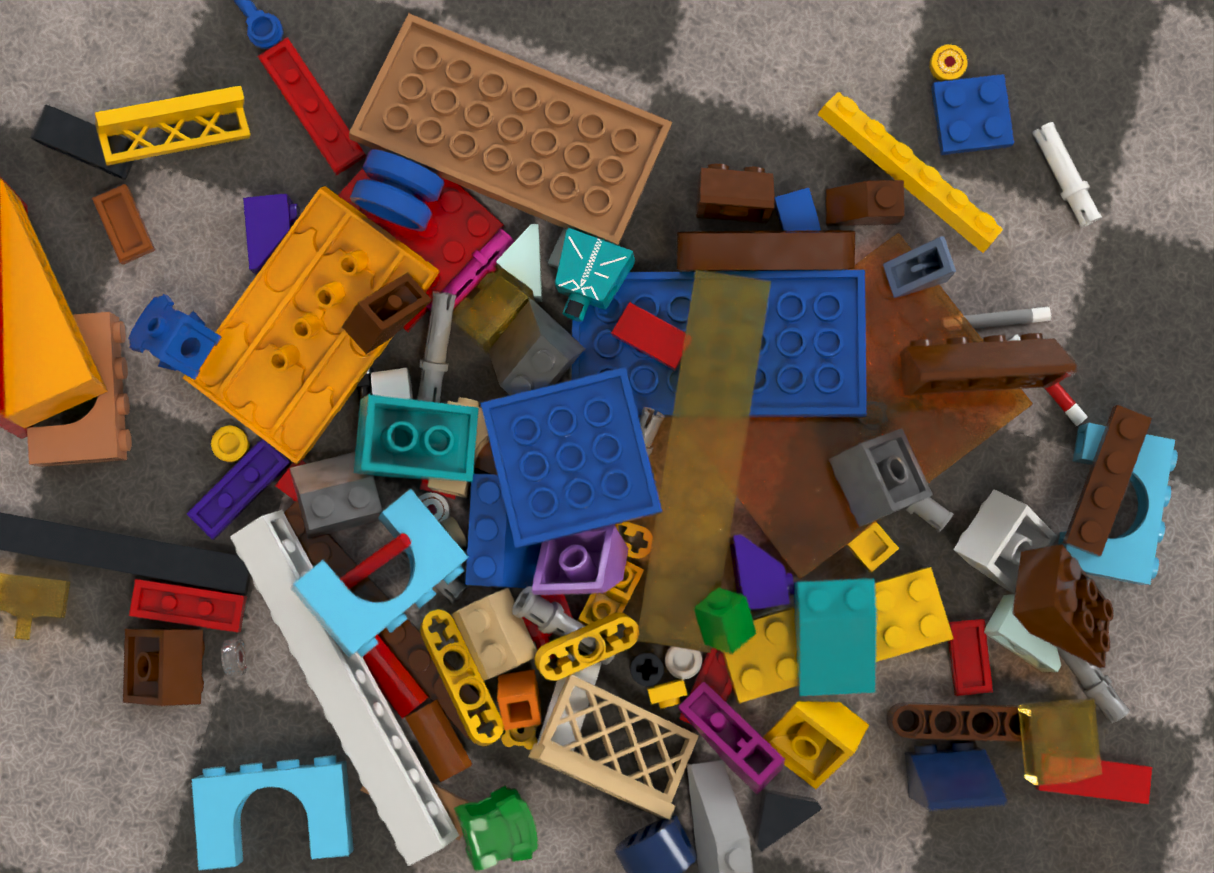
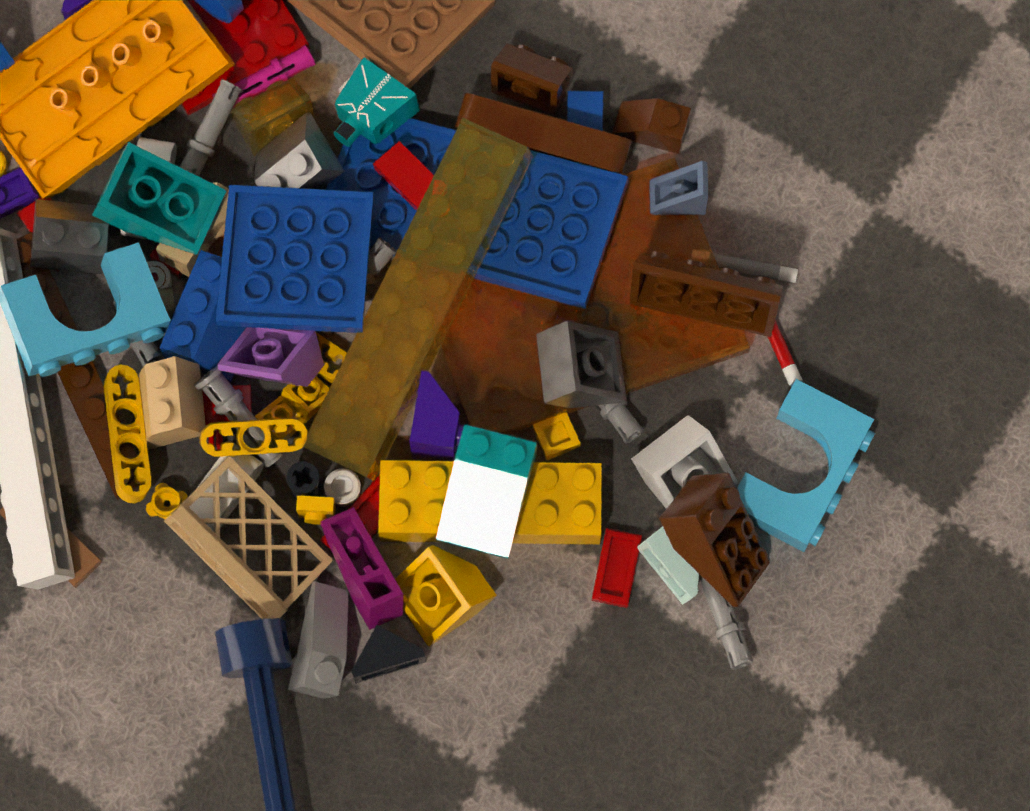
camera: 20 degrees right, 10 degrees down
(376, 560) = (86, 296): red bar -> none
(385, 312) = (170, 81): reddish brown slope -> none
(393, 679) = (63, 416): red tile -> none
(438, 741) = (86, 488): dark orange tile -> none
(497, 829) = (113, 579): green piece -> none
(519, 699) = (174, 469): orange brick -> none
(523, 260) = (318, 79): light aqua slope -> none
(725, 620) = (387, 443): green brick -> none
(918, 178) = (705, 107): yellow plate -> none
(948, 63) = (774, 23): yellow tile -> none
(952, 777) = (556, 664): dark blue slope -> none
(961, 721) = (618, 641): reddish brown beam -> none
(972, 114) = (782, 75): blue plate -> none
(1060, 741) = (673, 657): clear yellow slope -> none
(1067, 175) = (855, 166): white pin -> none
(1107, 480) = (795, 435): reddish brown plate -> none
(1117, 782) = (699, 717): red tile -> none

